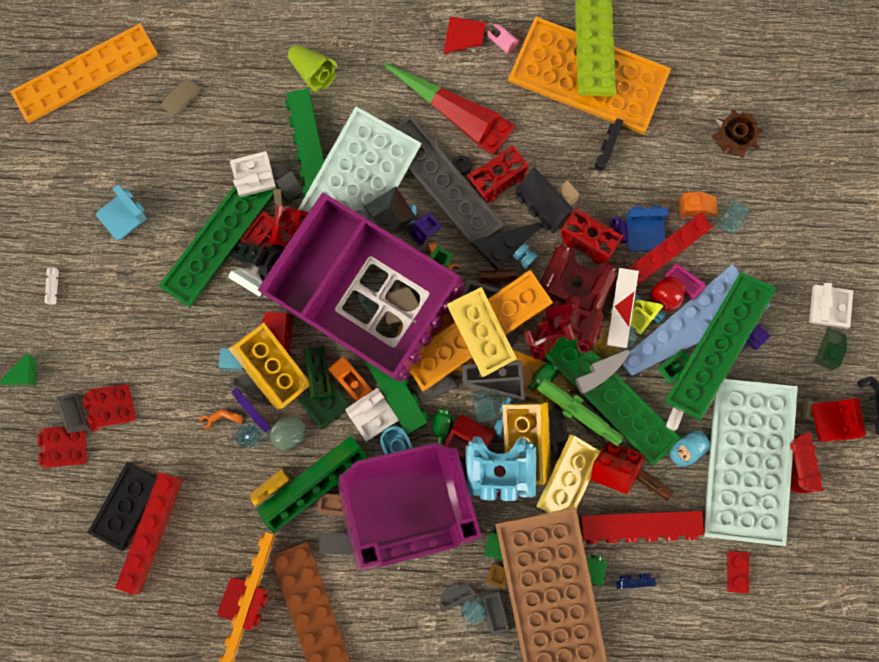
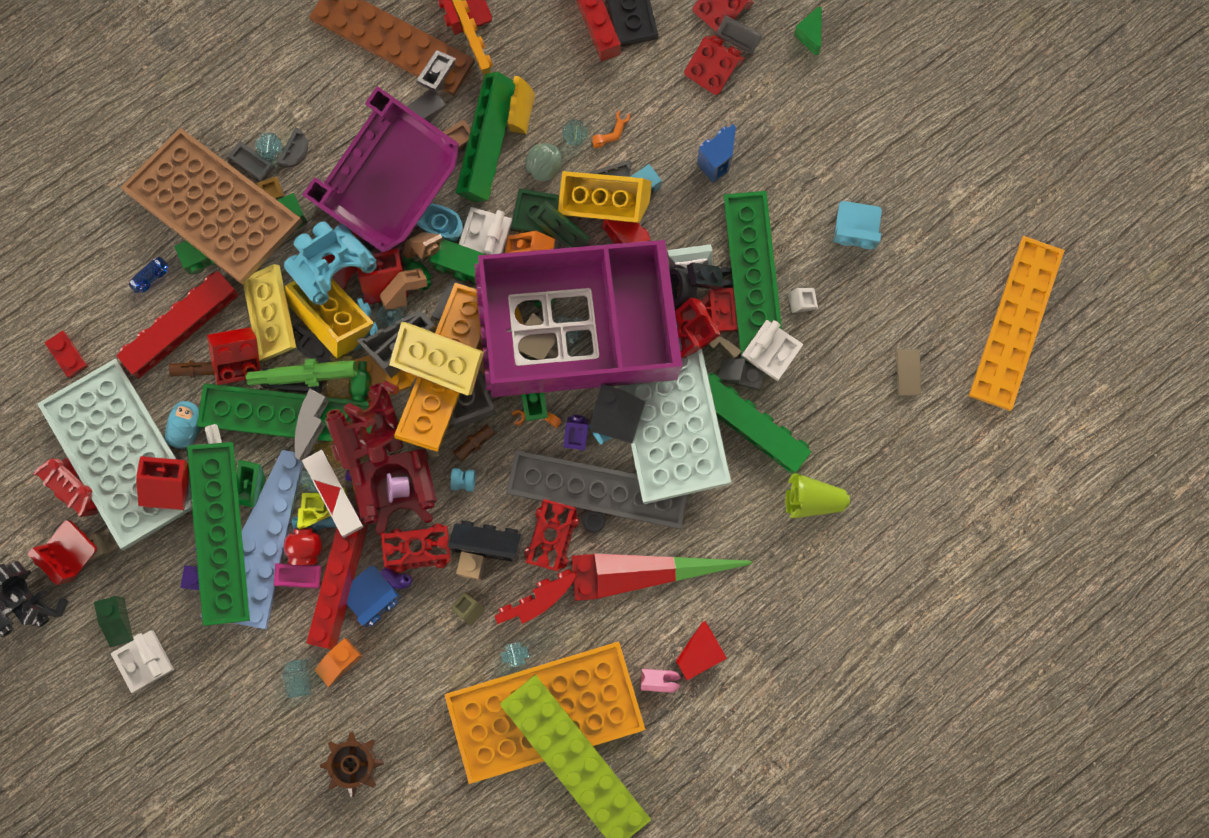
camera: 140 degrees right, 0 degrees up
(51, 286) = (859, 119): white axle -> none
(165, 333) = (716, 154): none -> blue slope
(203, 197) = (802, 300): none -> white slope
(251, 410) = (595, 154): dark purple tile -> none
(306, 563) = (436, 71): none -> slope
(421, 434) = (422, 245): none -> medium nougat slope
(466, 417) = (395, 293): none -> medium nougat slope
(501, 246) = (491, 468): black wing -> none
(531, 137) = (546, 595): none -> red slope
(576, 276) = (396, 487): none -> lavender piece
(580, 120) = (514, 655): none -> clear light blue gear
(587, 175) = (468, 608): none -> olive slope
(608, 145) = (469, 652): black plate -> none
(736, 406) = (162, 483): none -> red slope

